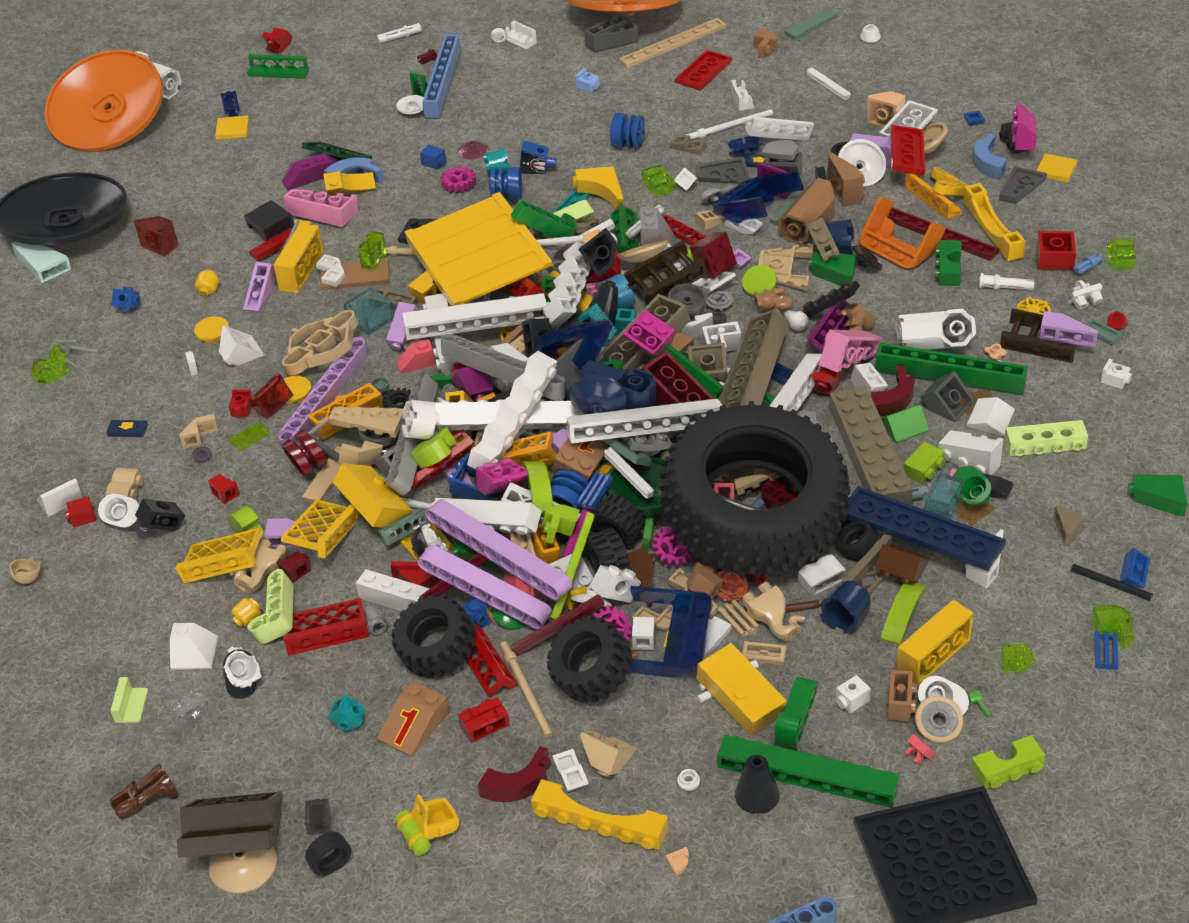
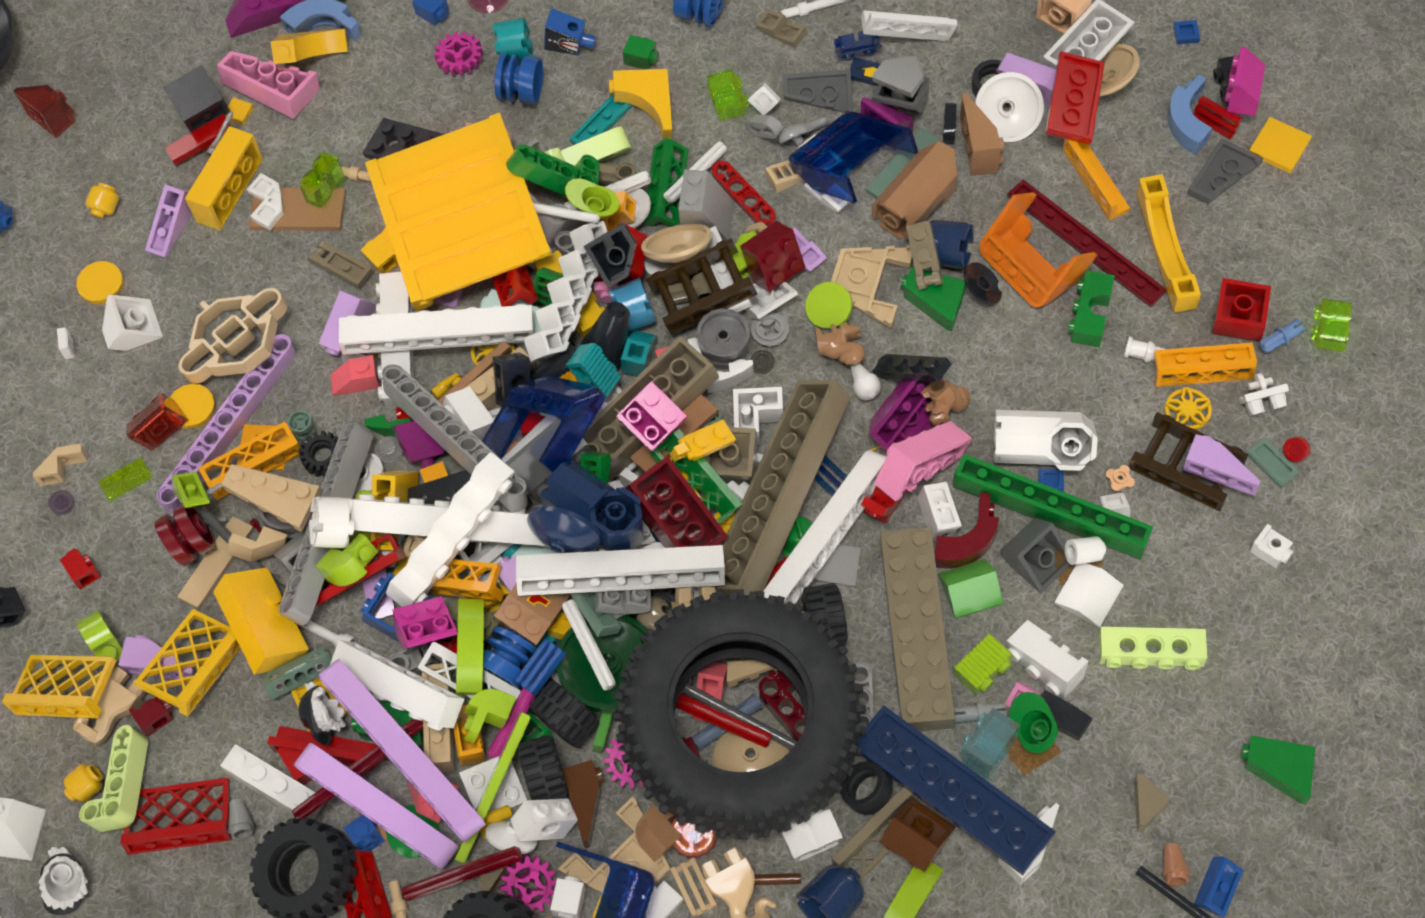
camera: 10 degrees right, 20 degrees up
(239, 405) = (116, 432): red brick -> none
(303, 422) = (189, 489): none -> lime slope
(371, 310) = (305, 286): clear light blue brick -> none
(574, 229) = (592, 197): none -> lime piece
(590, 161) = (640, 52): none -> green brick
(687, 189) = (764, 126): none -> light grey beam
(690, 349) = (703, 442): none -> yellow hinge
(947, 183) = (1132, 164): yellow beam -> none
(981, 388) = (1084, 550): none -> white brick
(1012, 164) = (1215, 120): none -> red tile
(1040, 279) = (1205, 361): none -> light orange fence
(1099, 560) = (1174, 866): none -> nougat cone

